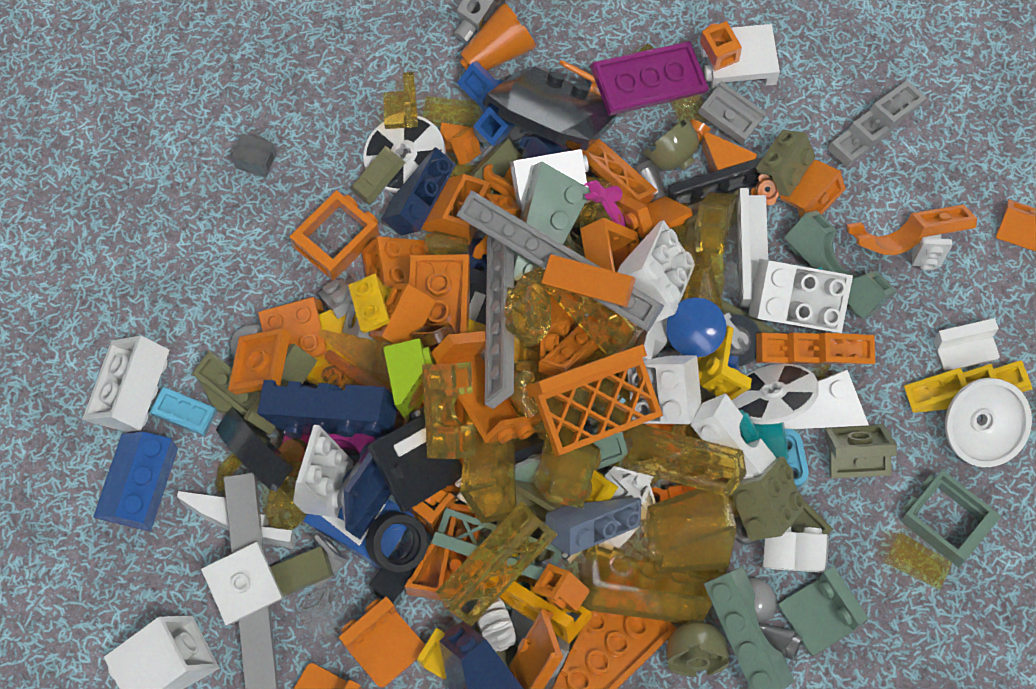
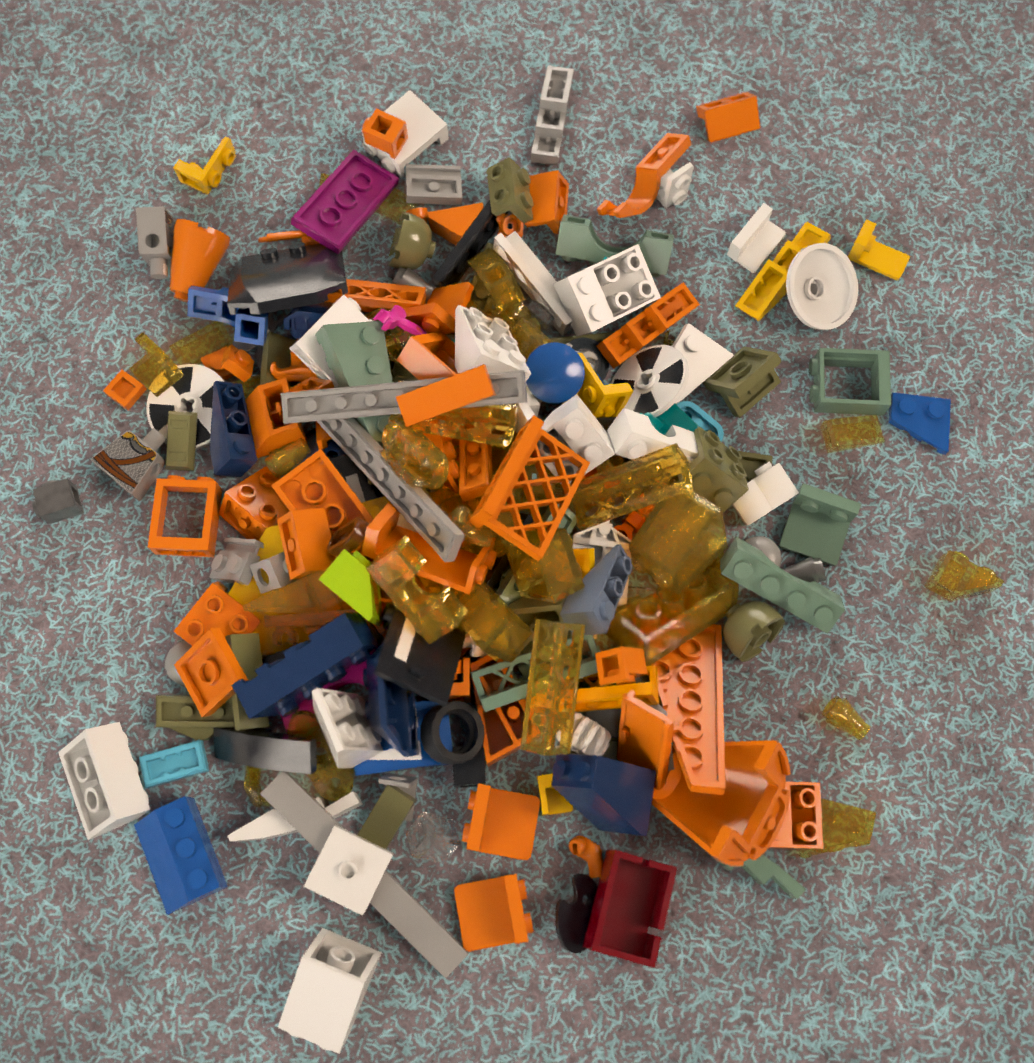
camera: 40 degrees left, 5 degrees up
(330, 165) = (132, 461): none -> torso
(367, 106) = (125, 390): none -> orange plate
(369, 303) = (270, 551): yellow bracket -> none
(989, 595) = (922, 418): none -> blue wing

